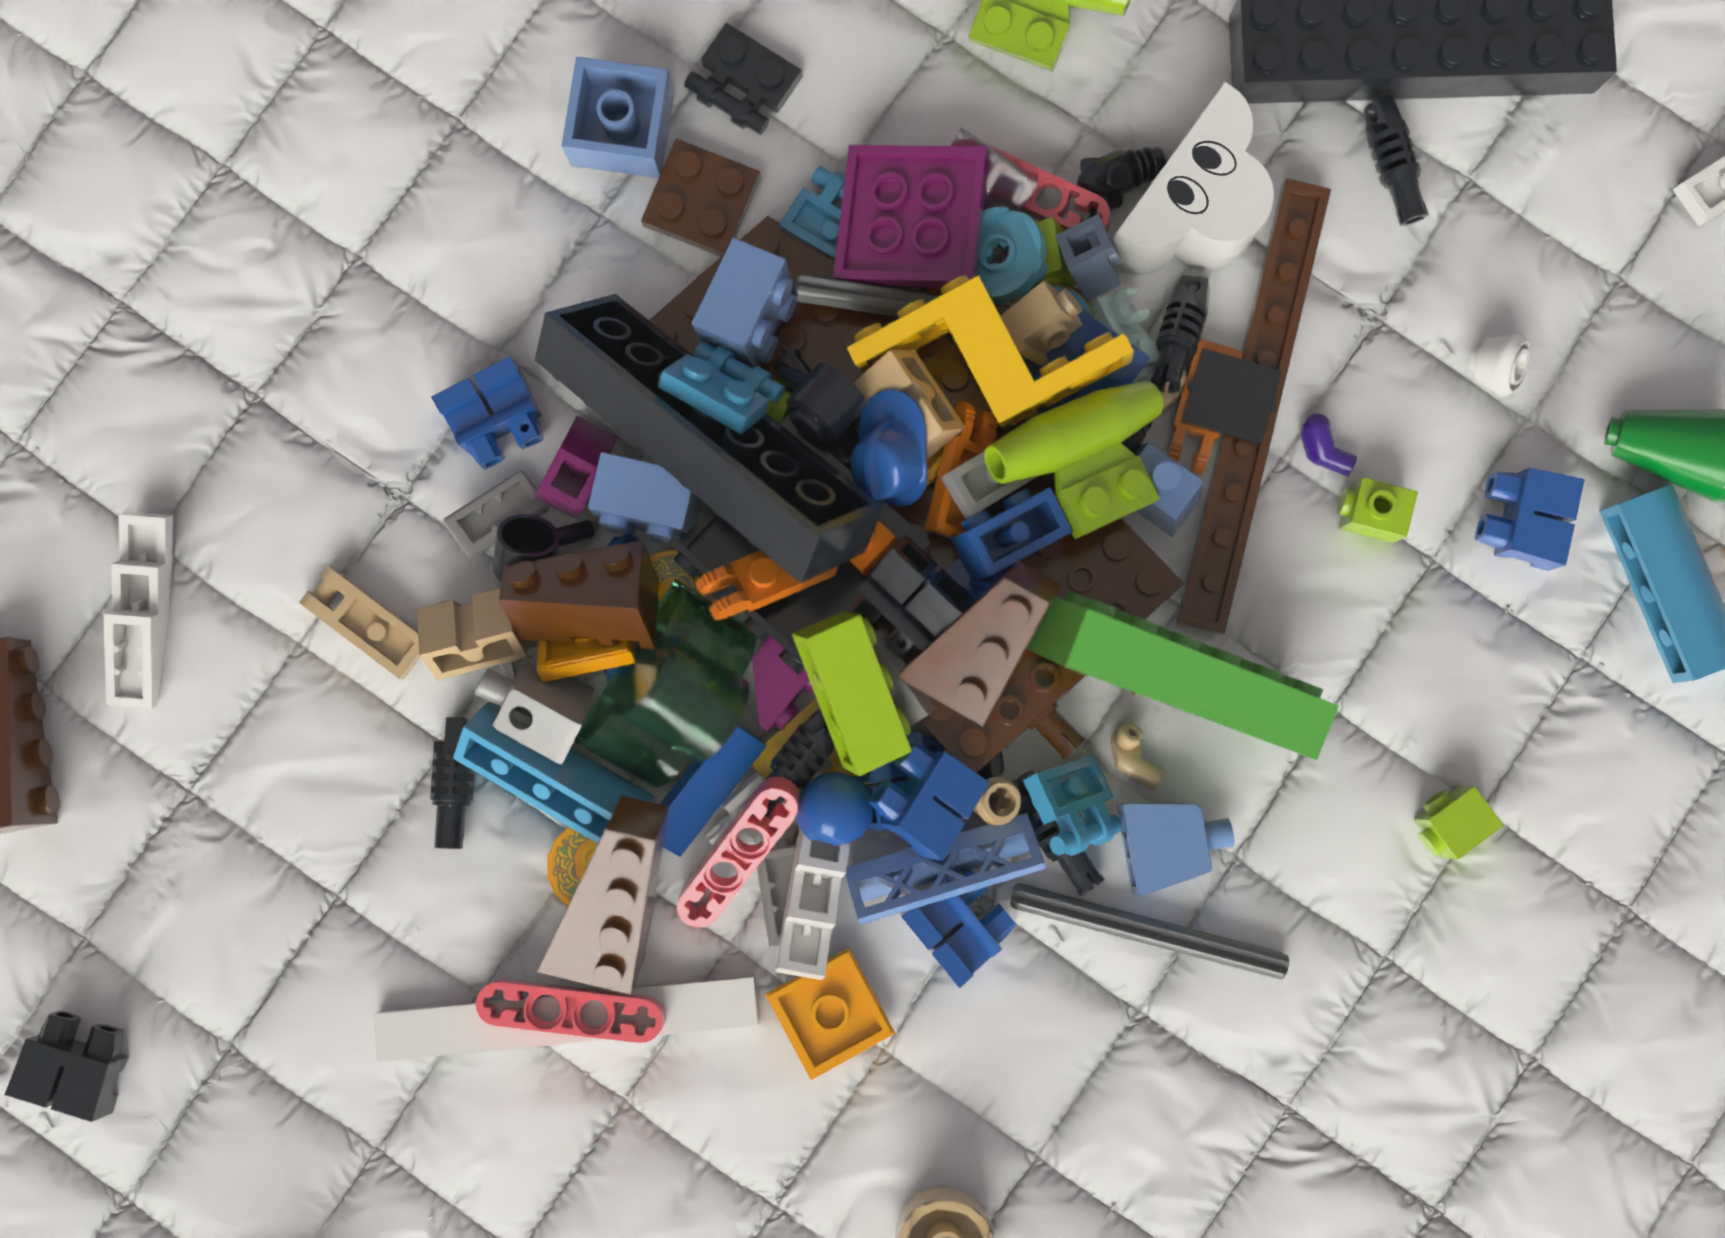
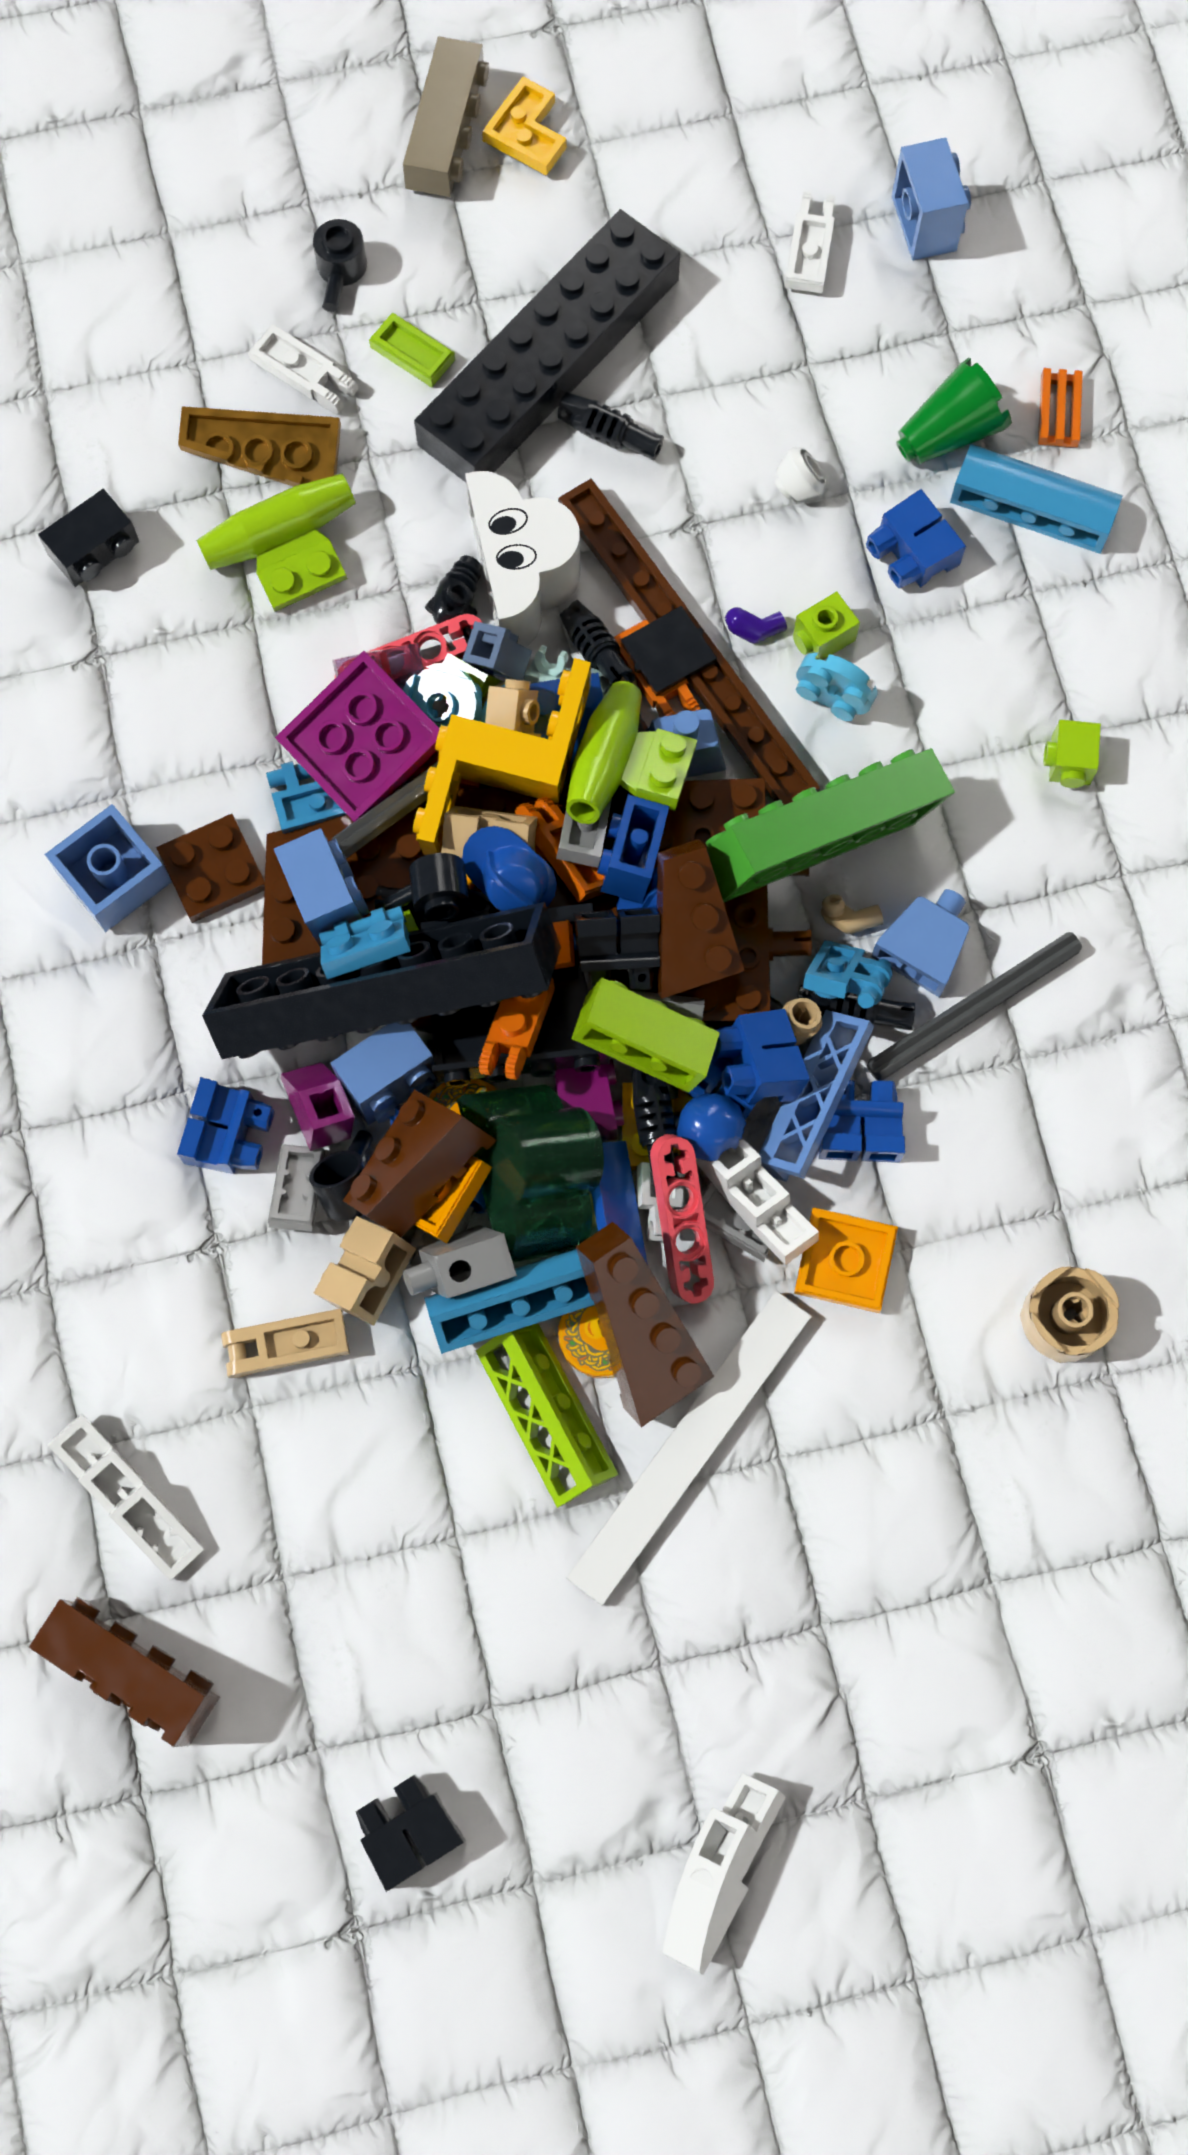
camera: 50 degrees left, 10 degrees down
(450, 787) = (454, 1380): black hinge -> none
(497, 886) = (551, 1406): none -> lime fence
(570, 1016) = (685, 1428): coral beam -> none
(749, 67) = (157, 761): black plate -> none
(1329, 567) = (835, 685): none -> medium azure plate

